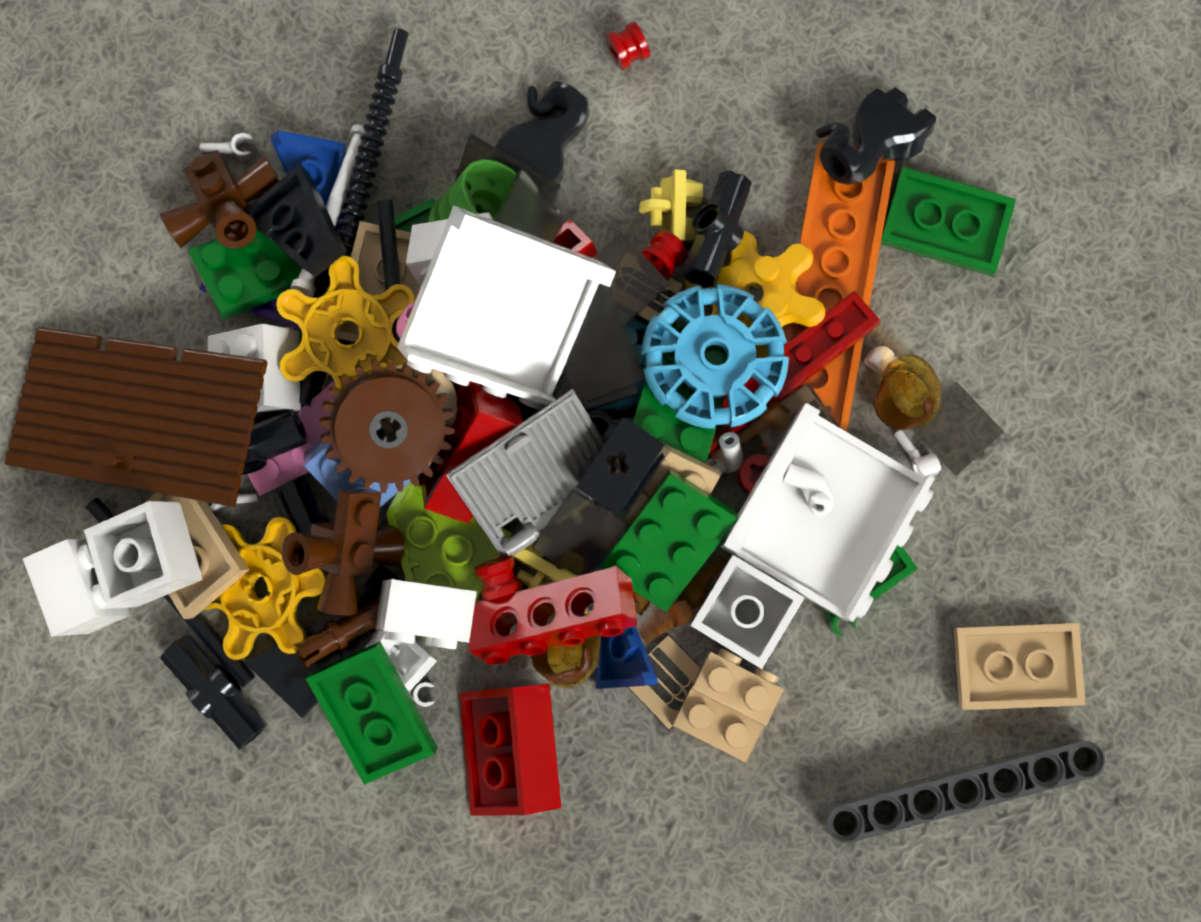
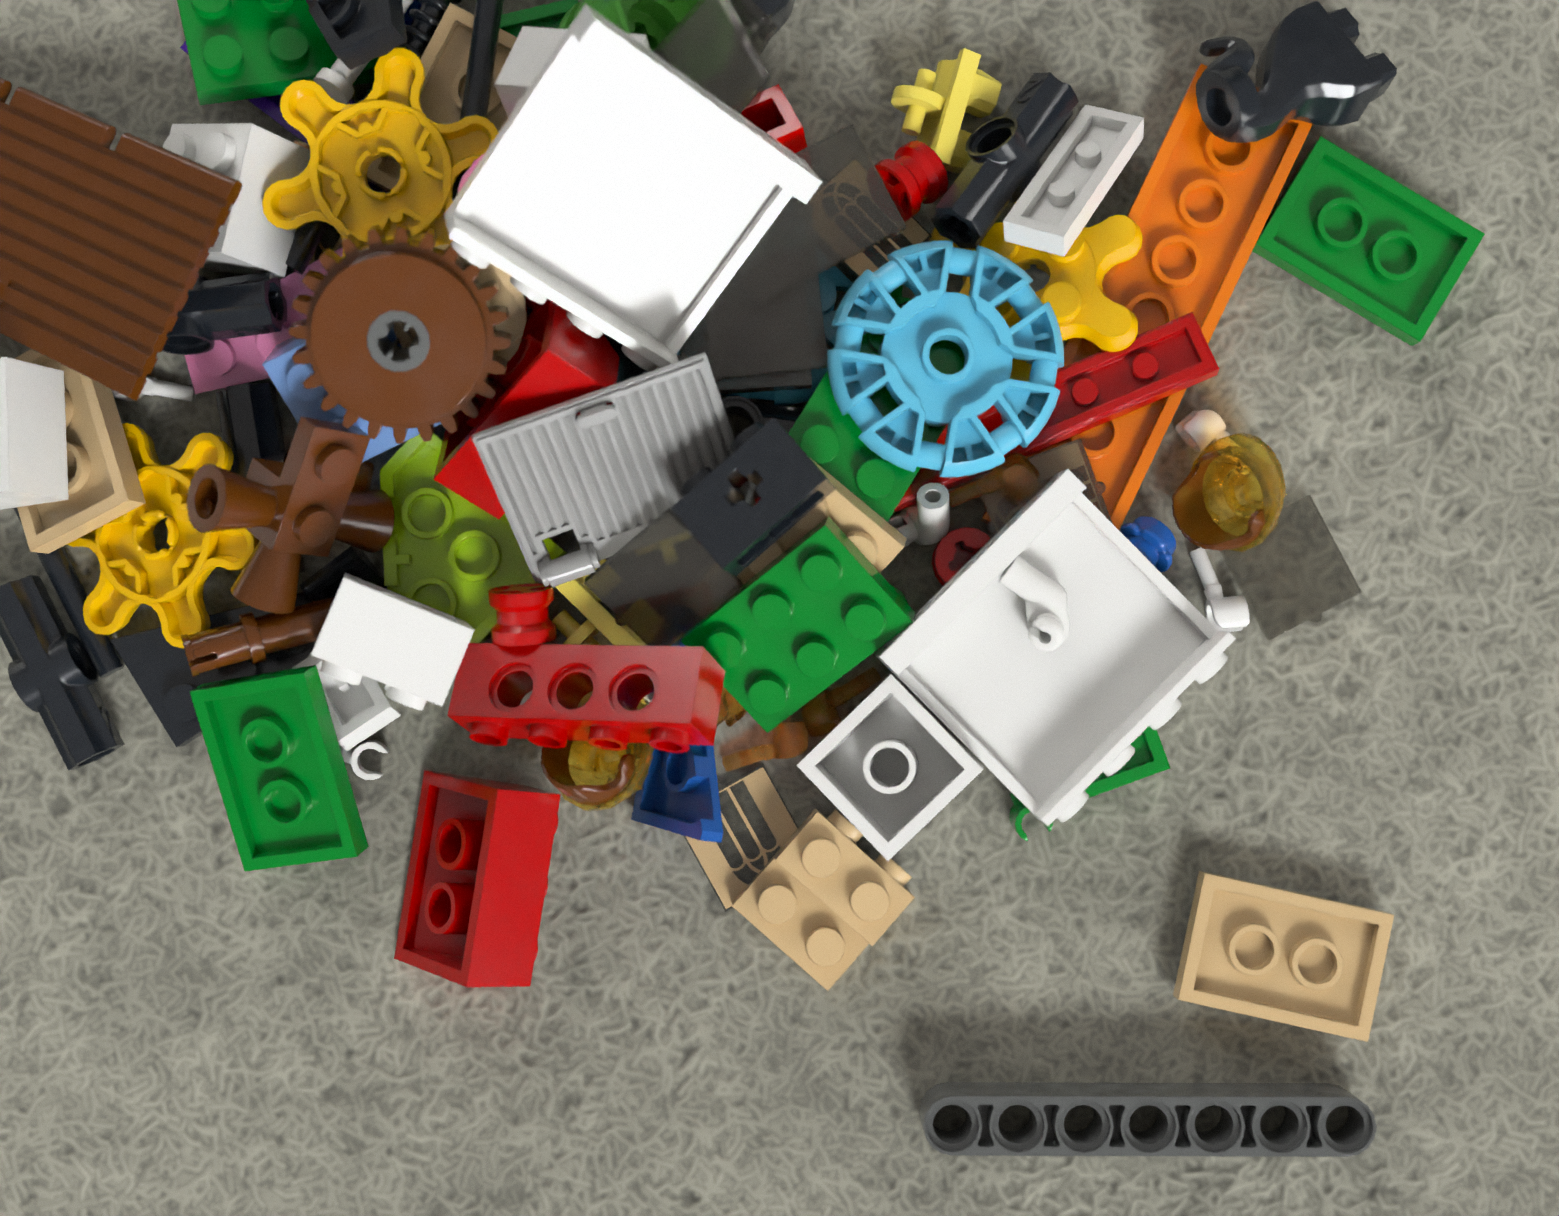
camera: 20 degrees right, 5 degrees up
(762, 230) = (1073, 180): none -> white plate
(869, 433) = (1152, 540): none -> blue plate

